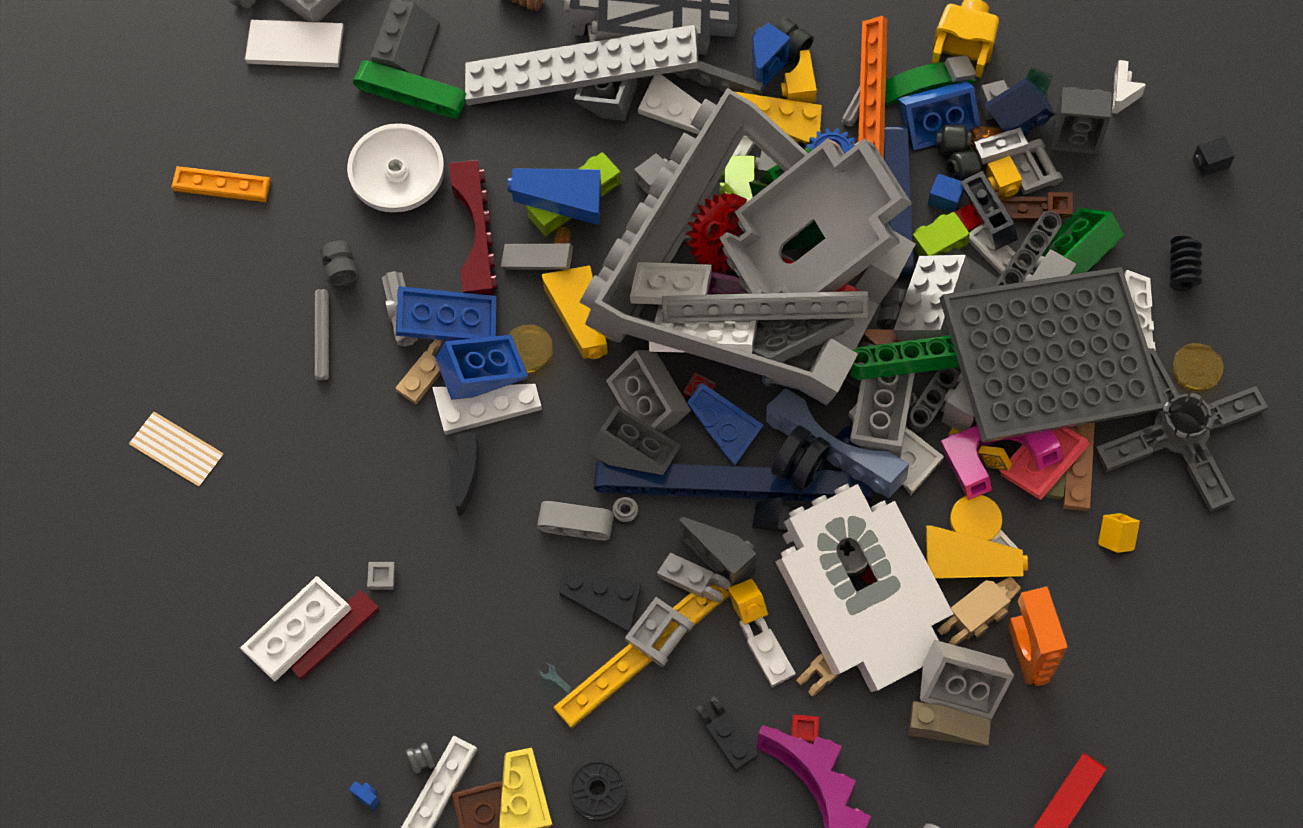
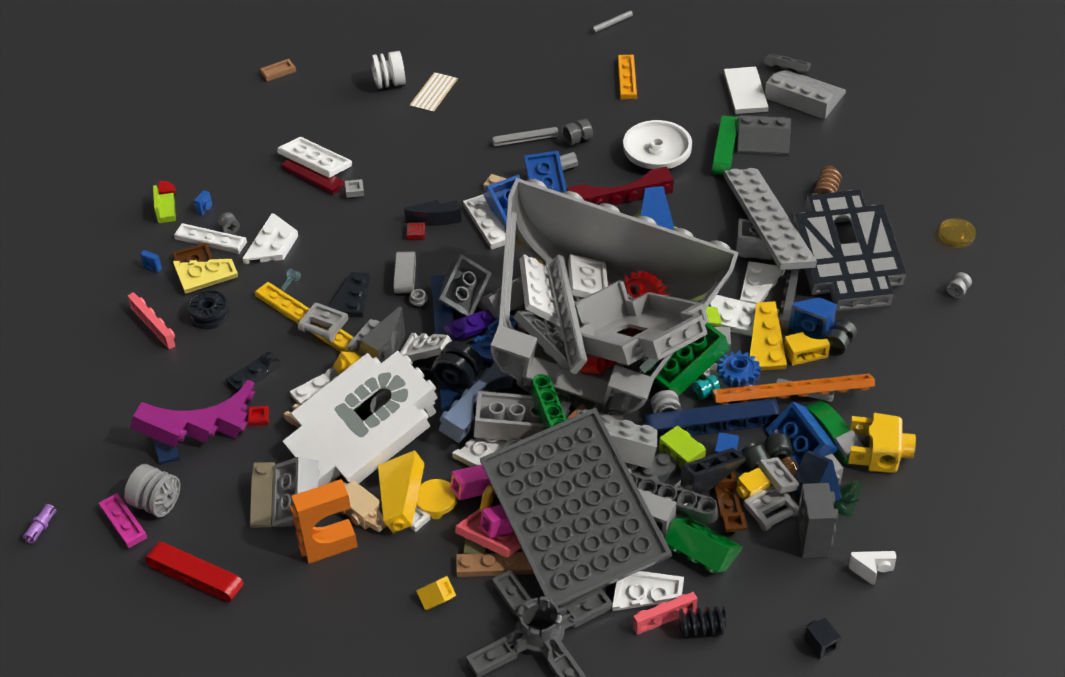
camera: 80 degrees right, 20 degrees down
(56, 676) = (277, 70): none -> medium nougat tile
(84, 182) = (610, 22): none -> light grey bar
(129, 500) = (388, 69): none -> white wheel
(464, 698) = (272, 241): none -> white wing
(488, 500) = (416, 231): none -> red tile
(700, 445) = (469, 325): none -> dark purple plate
(734, 502) = (424, 346): none -> white wing
(1168, 299) = (663, 613): none -> coral plate
(1197, 367) = (605, 644): clear yellow tile -> none

